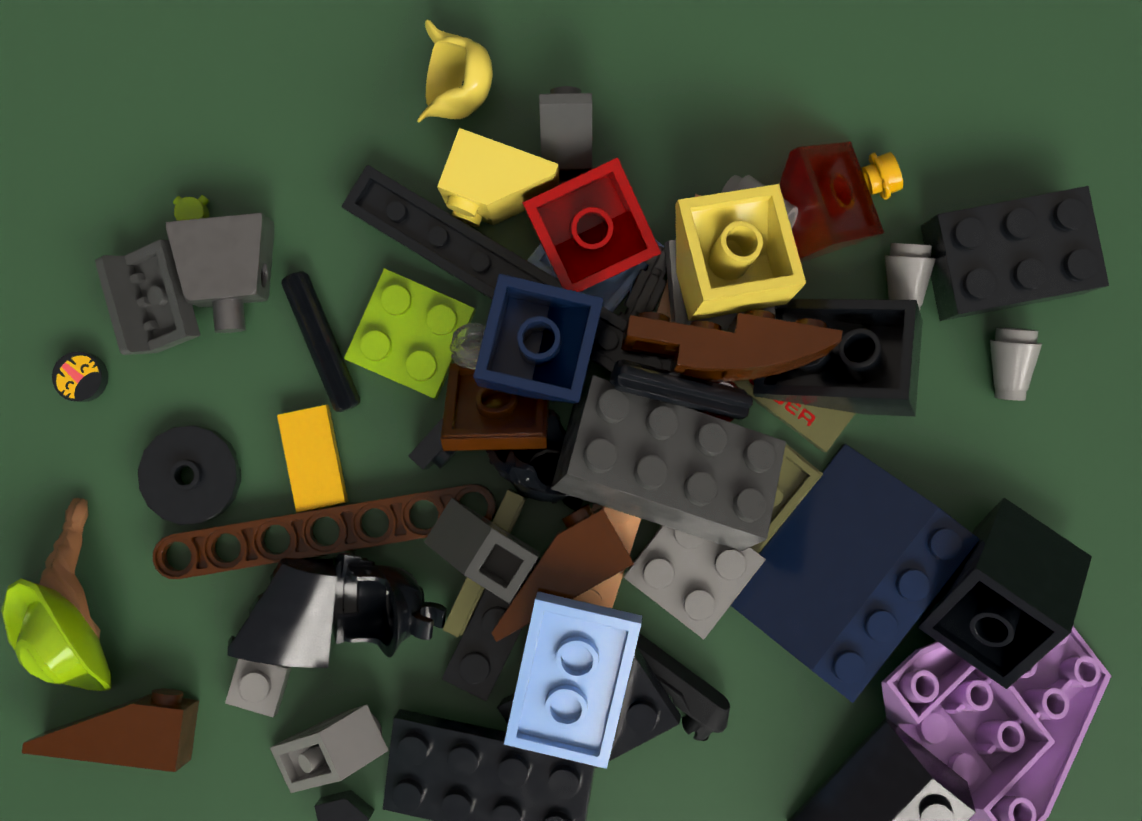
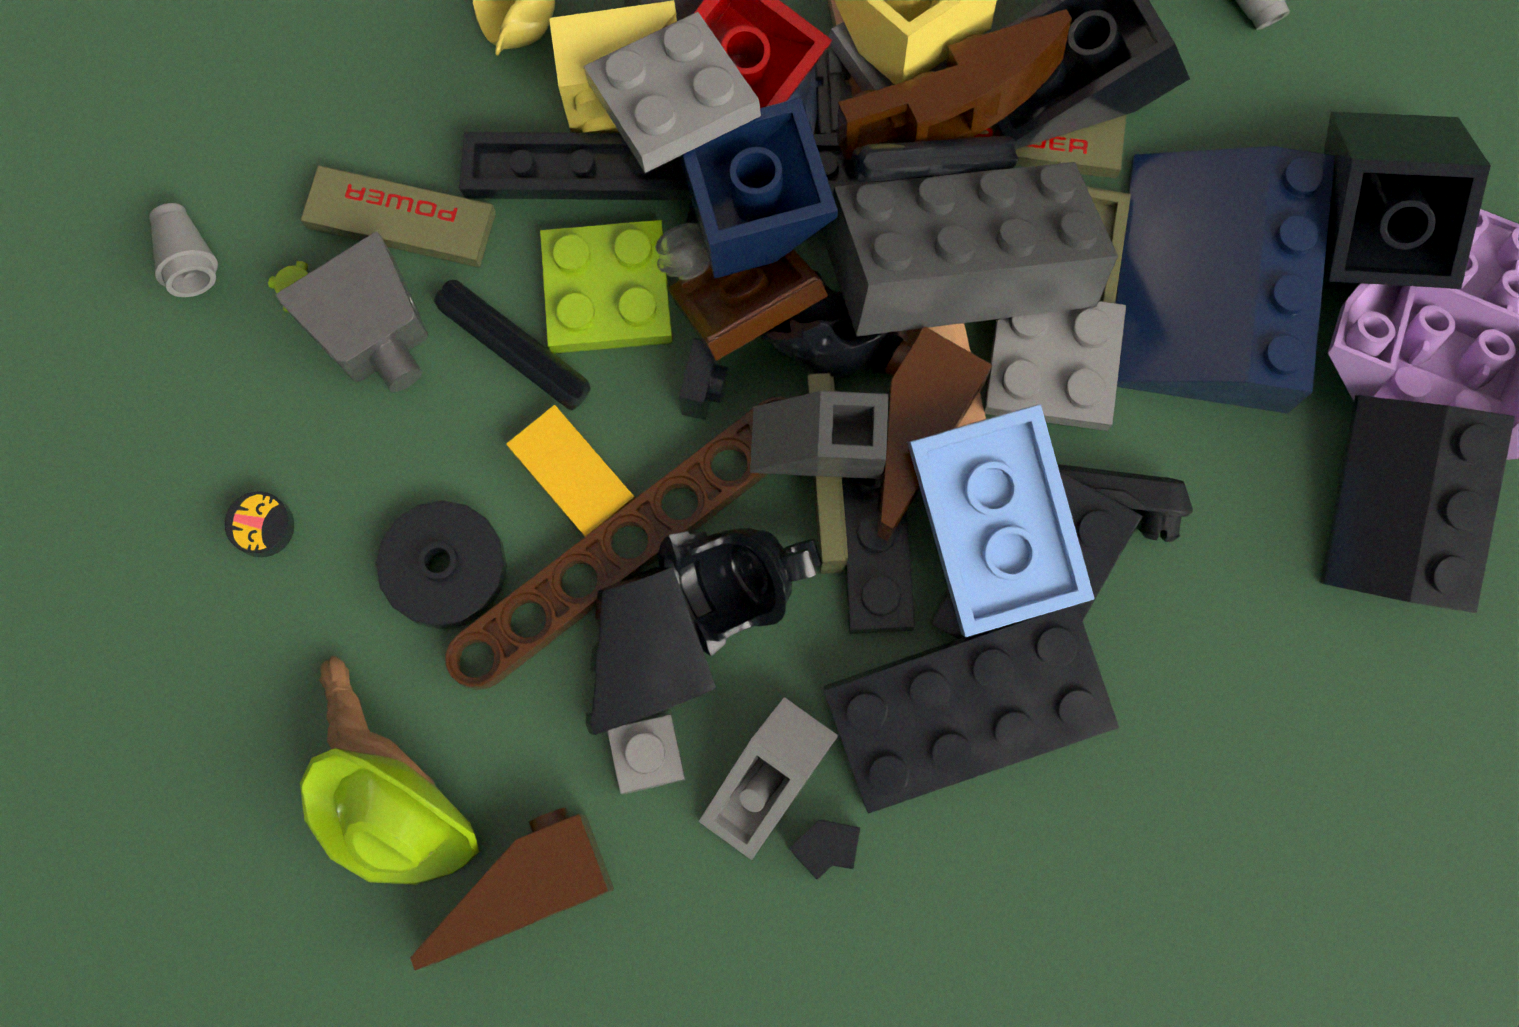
camera: 30 degrees left, 10 degrees down
(121, 143) = (180, 253): none -> light grey cone
(146, 300) = (297, 393): dark grey bracket -> none
(291, 199) = (401, 214): none -> olive tile
(512, 242) = (672, 91): none -> light grey plate

